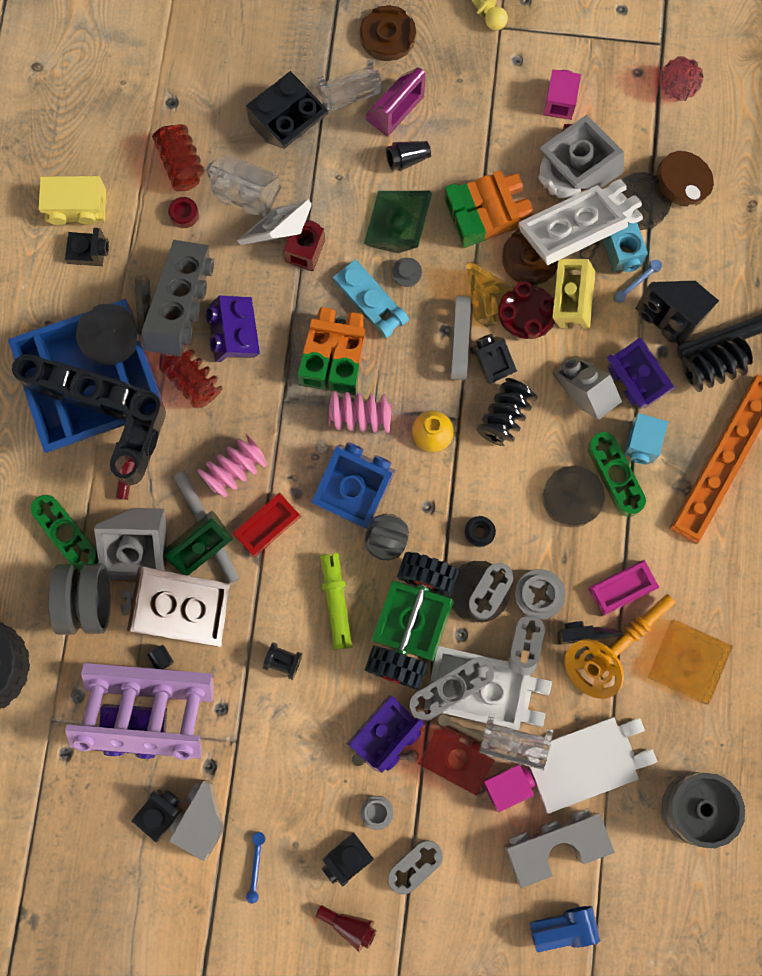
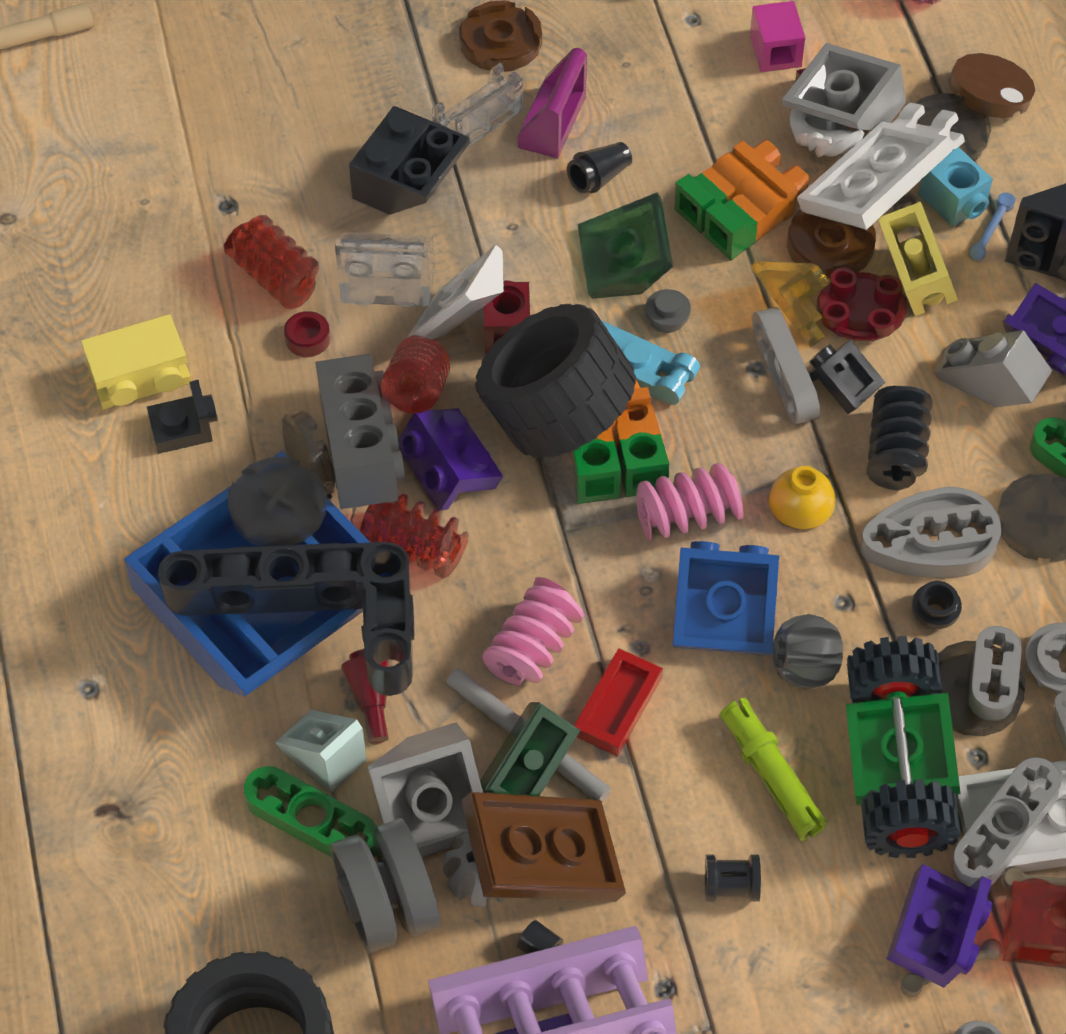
camera: 20 degrees left, 20 degrees down
(86, 494) = (325, 747): none -> light aqua slope
(228, 270) = (416, 374): none -> clear red piece
(306, 308) = (555, 380): none -> black tyre
(508, 468) = (934, 510): none -> light grey piece

